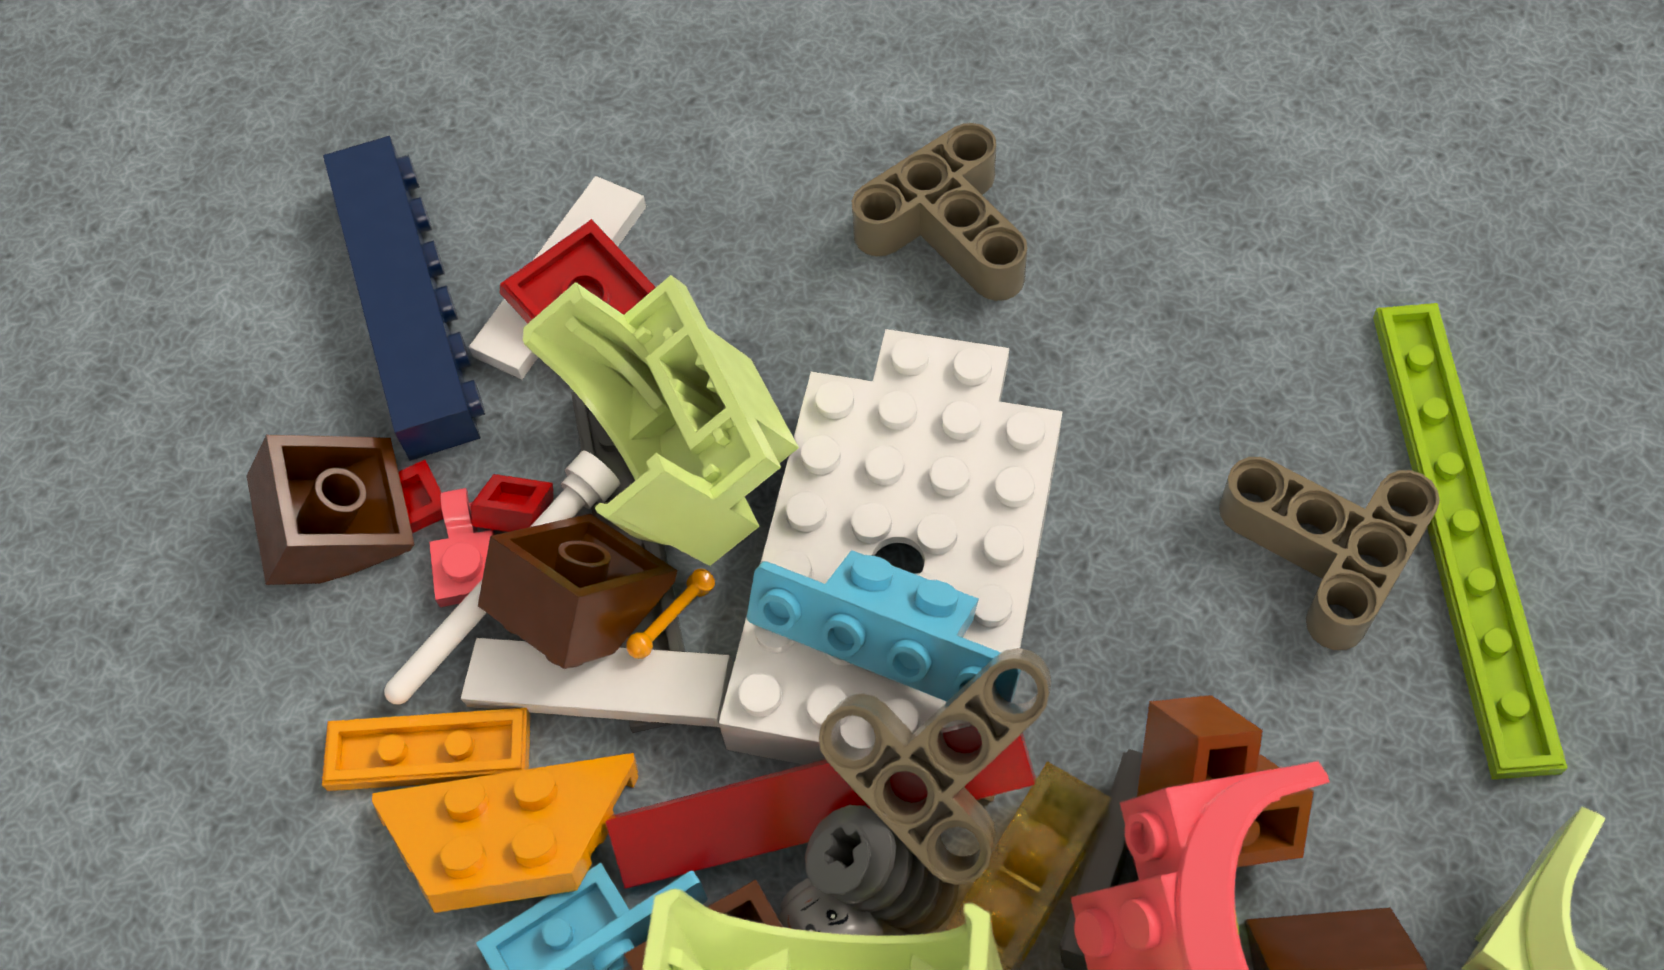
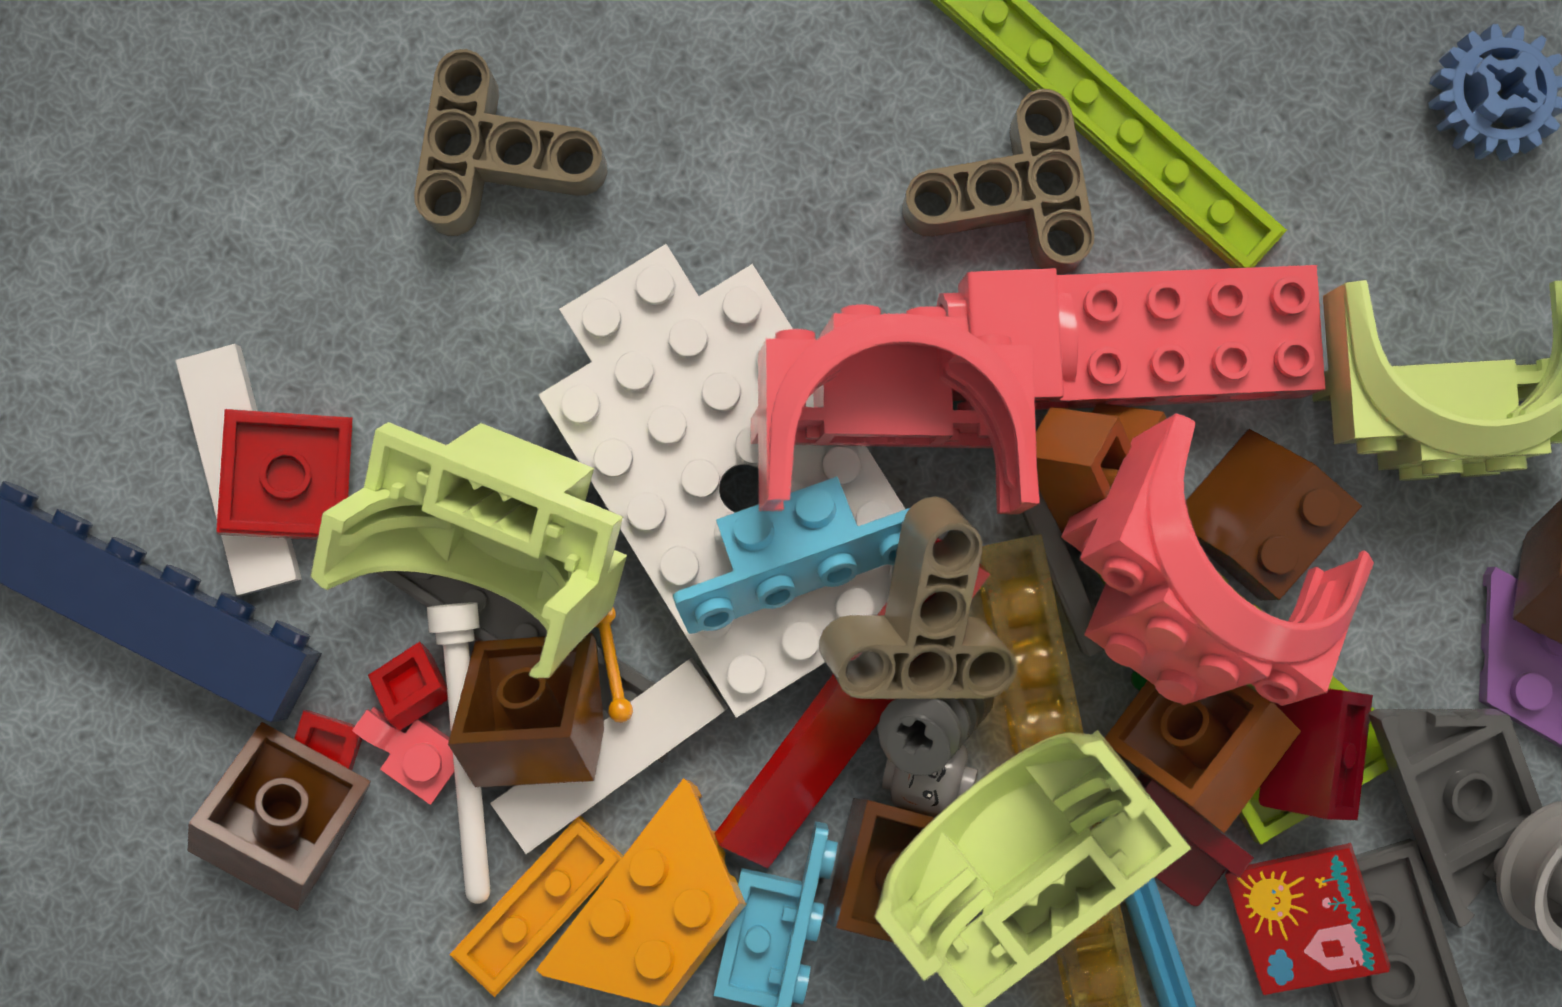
camera: 50 degrees left, 25 degrees up
(1078, 556) = (892, 387): none -> coral piece
(1401, 767) = (1154, 333): none -> coral brick

